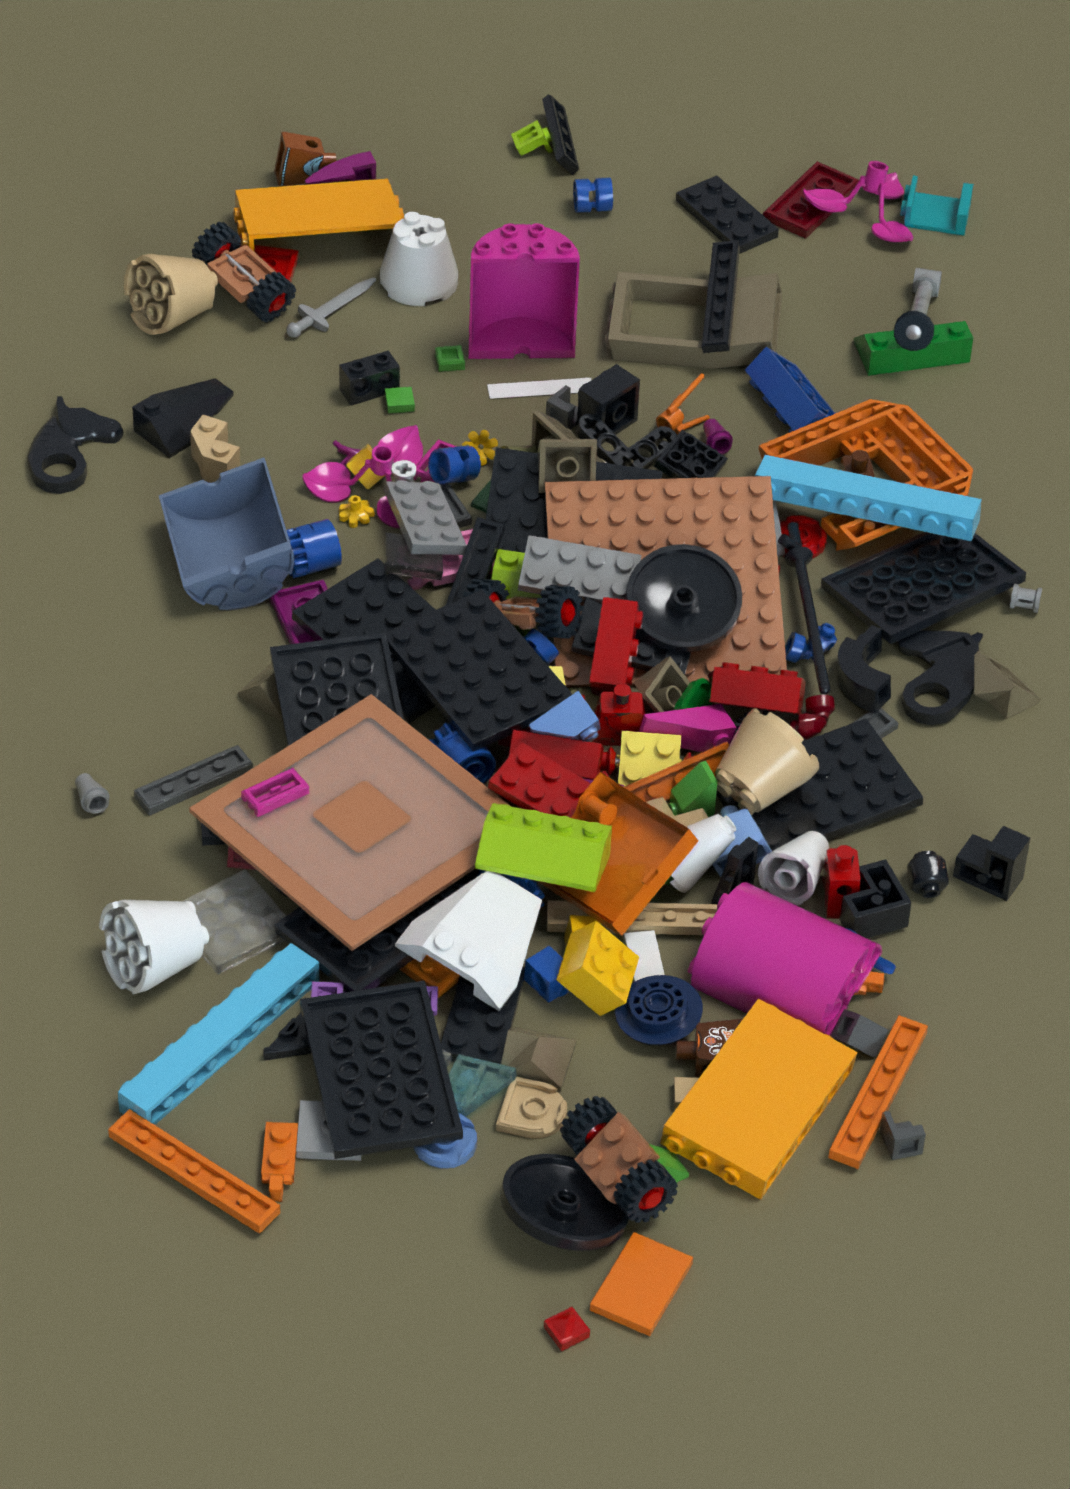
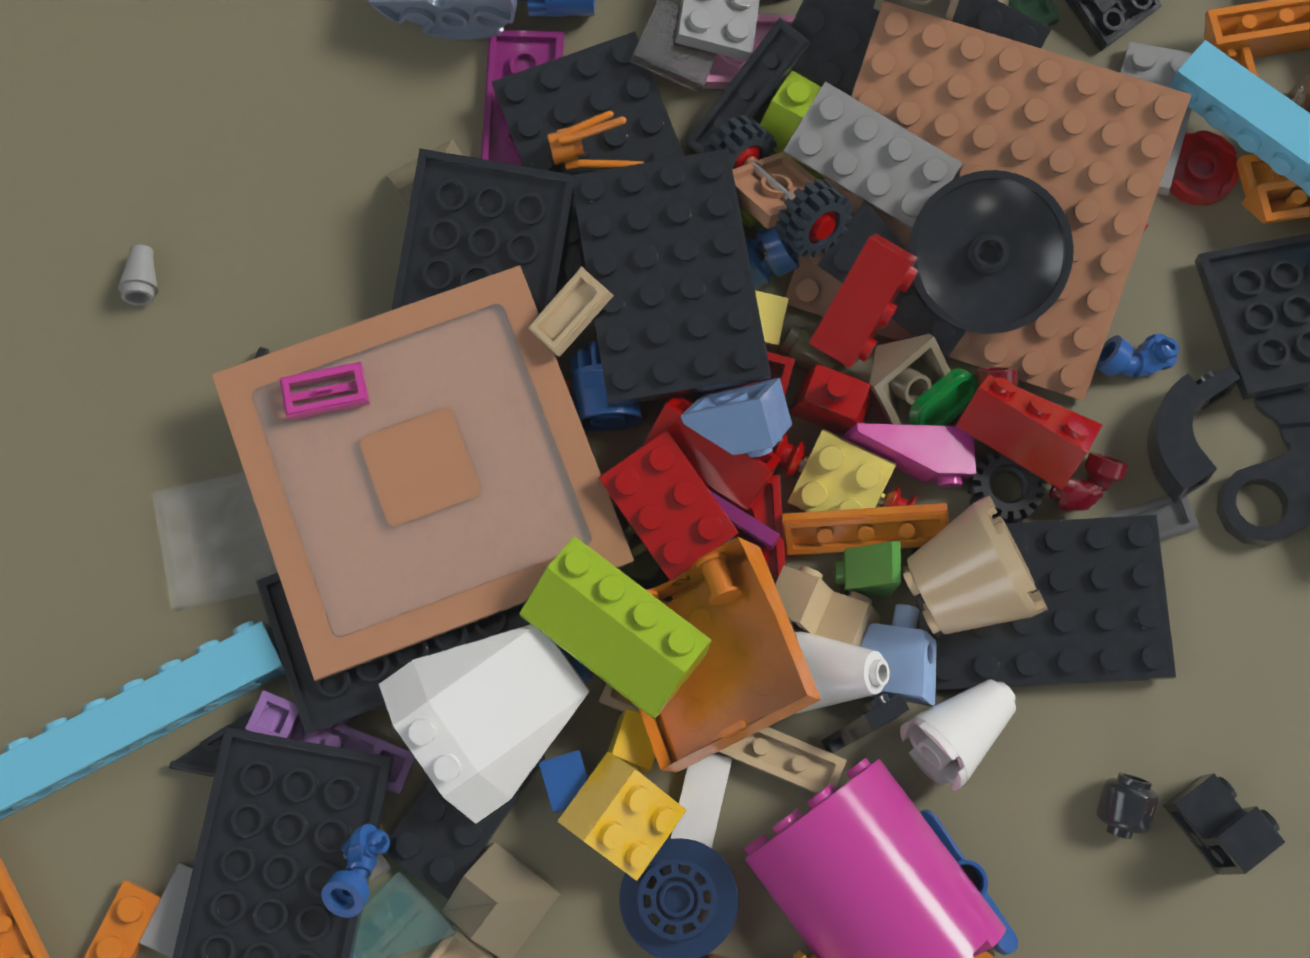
camera: 25 degrees right, 30 degrees up
(150, 941) = (91, 558): white cone -> none
(193, 780) = (273, 295): dark grey tile -> none
(369, 623) = (567, 143): none -> orange plant
(422, 701) = (570, 311): none -> tan tile
(436, 1044) = (348, 889): none -> blue arm
(798, 558) = (1181, 211): black piece -> none
(839, 869) = (1004, 783): red torso -> none
(879, 905) = (1046, 837): black brick -> none

